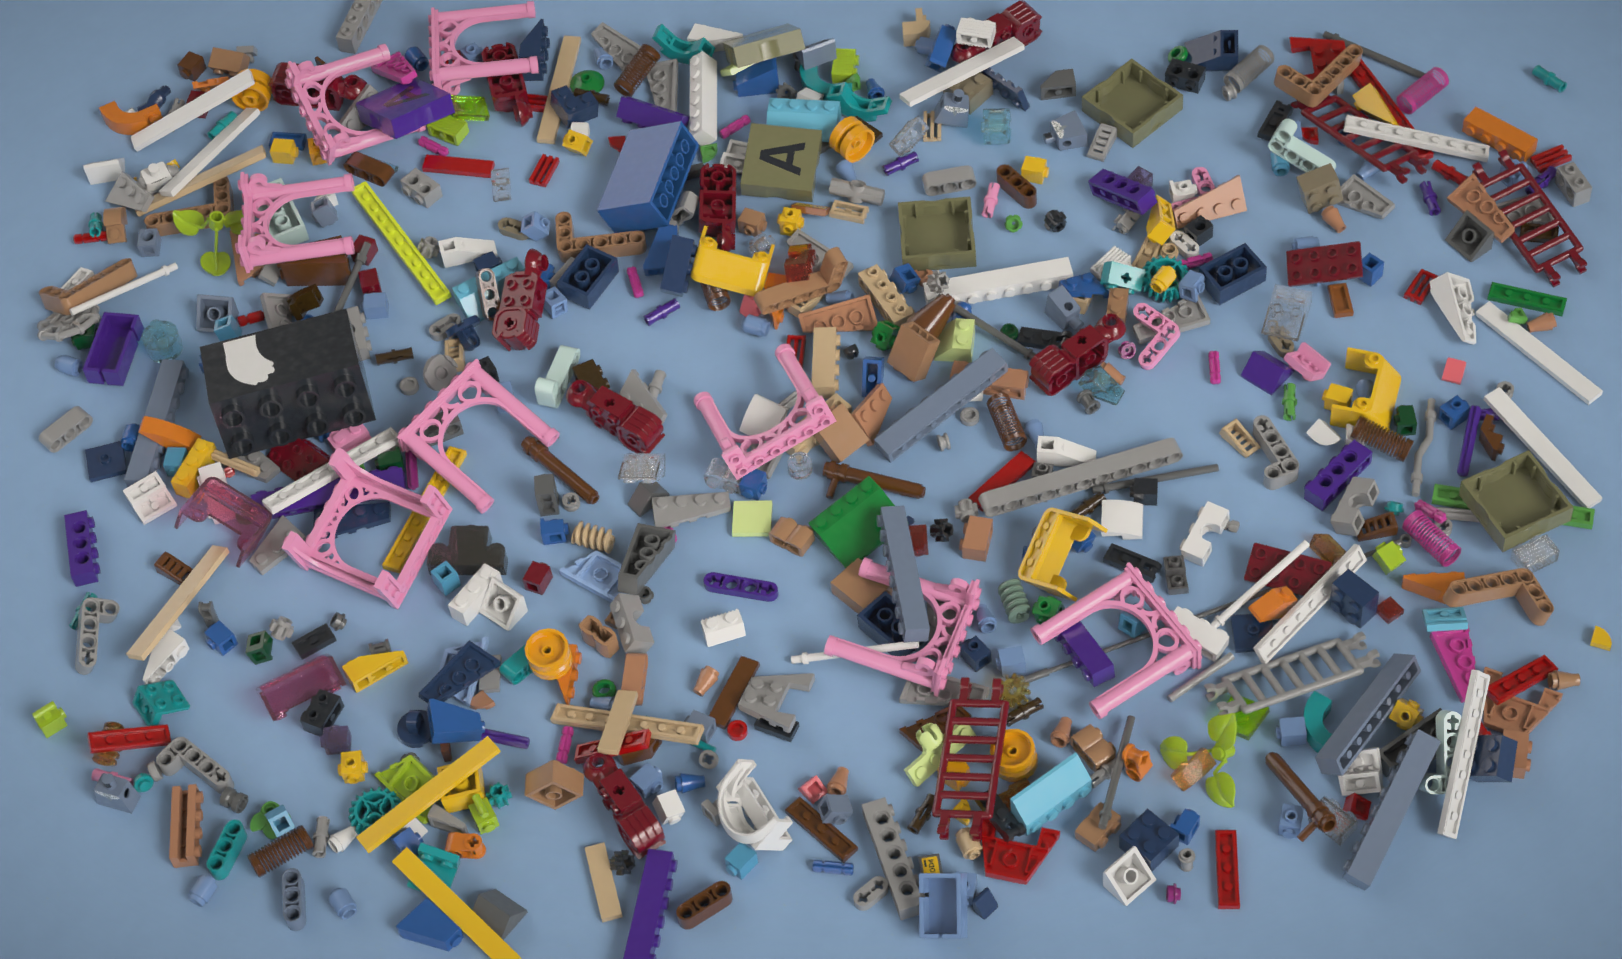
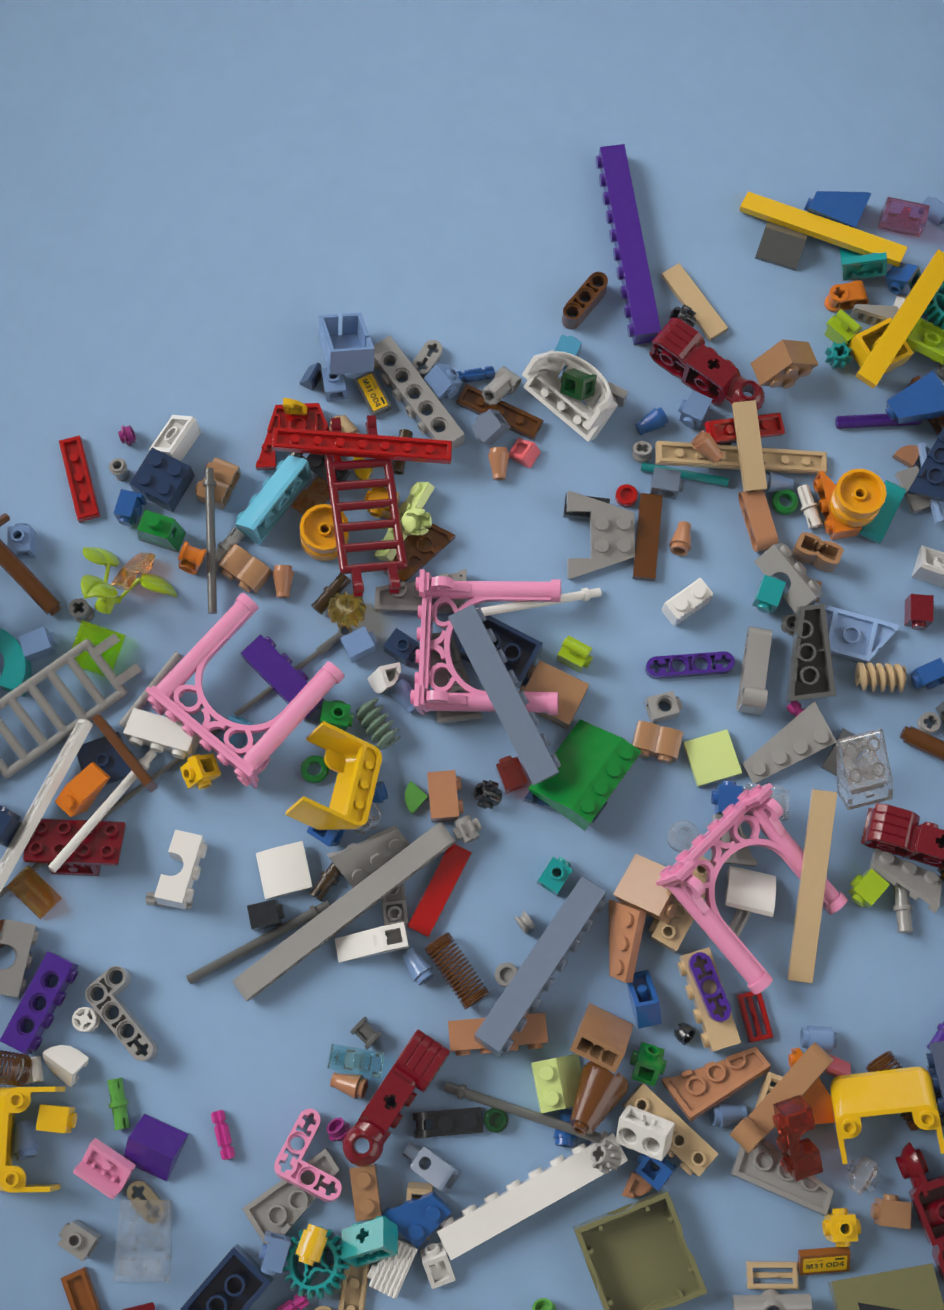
camera: 155 degrees right, 20 degrees up
(377, 899) = (903, 216): none -> clear pink brick
(565, 744) = (797, 430): dark pink axle -> none
(586, 678) = (809, 507): none -> white axle
(654, 616) = (769, 594): none -> teal brick
(657, 726) = (707, 446): none -> nougat cone
(668, 807) = (660, 383): white brick -> none
(675, 404) = (867, 888): none -> lime brick
(693, 563) = (752, 691): none -> light grey beam
(716, 407) = (812, 886): none -> tan tile
(745, 812) = (578, 384): none -> dark green brick
(781, 564) = (655, 714): none -> light grey brick
(807, 848) = (502, 384): none -> light grey piece
(827, 367) = (719, 989): none -> dark purple beam
(832, 612) = (575, 654): none -> lime brick
(845, 473) = (627, 844): reddish brown cylinder -> none
(863, 861) = (443, 381): none -> medium blue brick
(905, 290) = (644, 1132): none -> white brick
(908, 465) = (555, 875): none -> teal brick
(958, 804) = (361, 445): none -> red tile
(997, 631) = (384, 677): none -> white brick
(1001, 546) = (414, 797): none -> bright green tile
(1009, 867) = (294, 407): none -> yellow tile
(1033, 515) = (366, 857): none -> light grey wing
(1074, 579) = (305, 765): none -> green piece
(1079, 262) = (437, 1265): none -> white bracket
(1119, 557) = (258, 813): black plate -> none
(1162, 795) = (157, 530): none -> green torso
(1173, 595) = (200, 771): none -> yellow brick
(1176, 575) = (205, 812): flat silver slope -> none
(1231, 621) = (125, 753): none -> reddish brown tile
(1239, 430) = (182, 1038): tan slope -> none
(1247, 749) = (77, 604): none -> dark grey bush
(1304, 452) = (81, 1018): none -> white wheel
(1334, 328) = (79, 1239): none -> light grey brick

